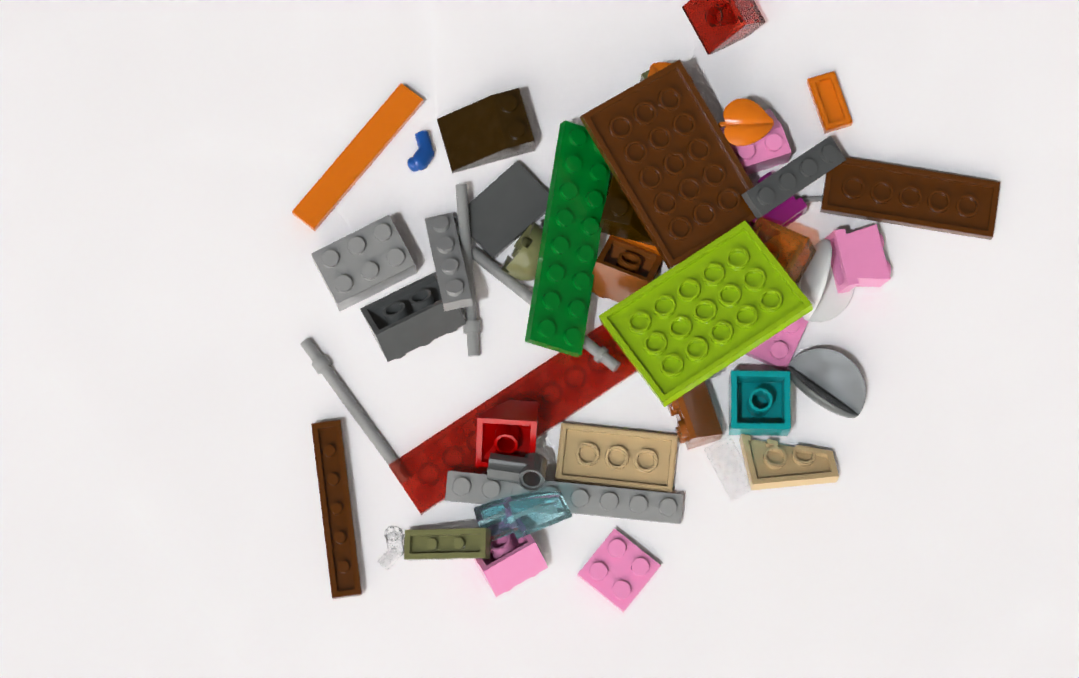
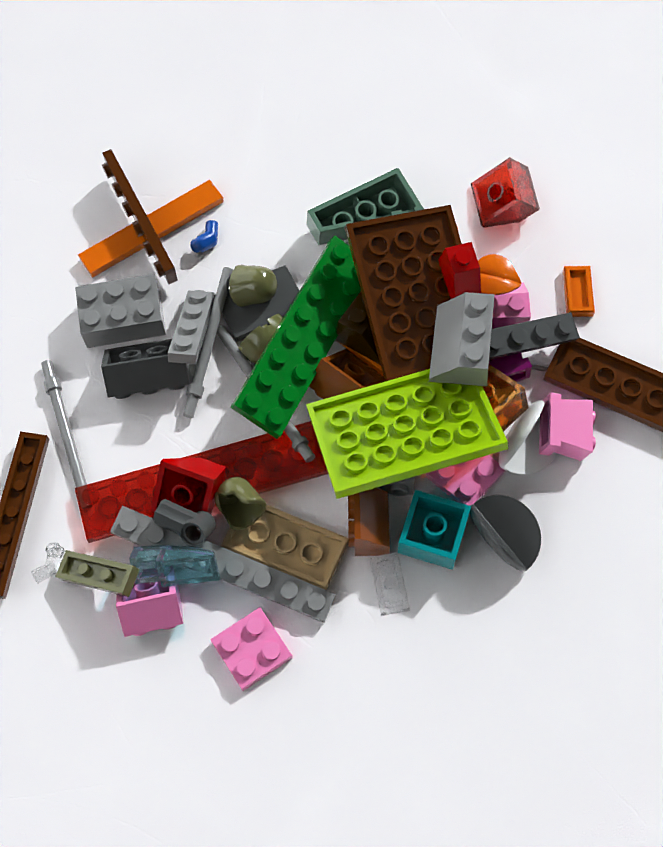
camera: 20 degrees right, 10 degrees down
(352, 160) = (141, 224): none -> reddish brown plate
(487, 131) = (268, 235): dark brown slope -> none
(493, 196) = (252, 285): none -> olive hair
(562, 433) = (239, 503): none -> olive hair
(588, 71) = (374, 199): none -> sand green wedge
(714, 137) = (460, 269): none -> red slope
(736, 207) = (462, 340): none -> light grey slope
(781, 466) = (439, 596): tan wing -> none

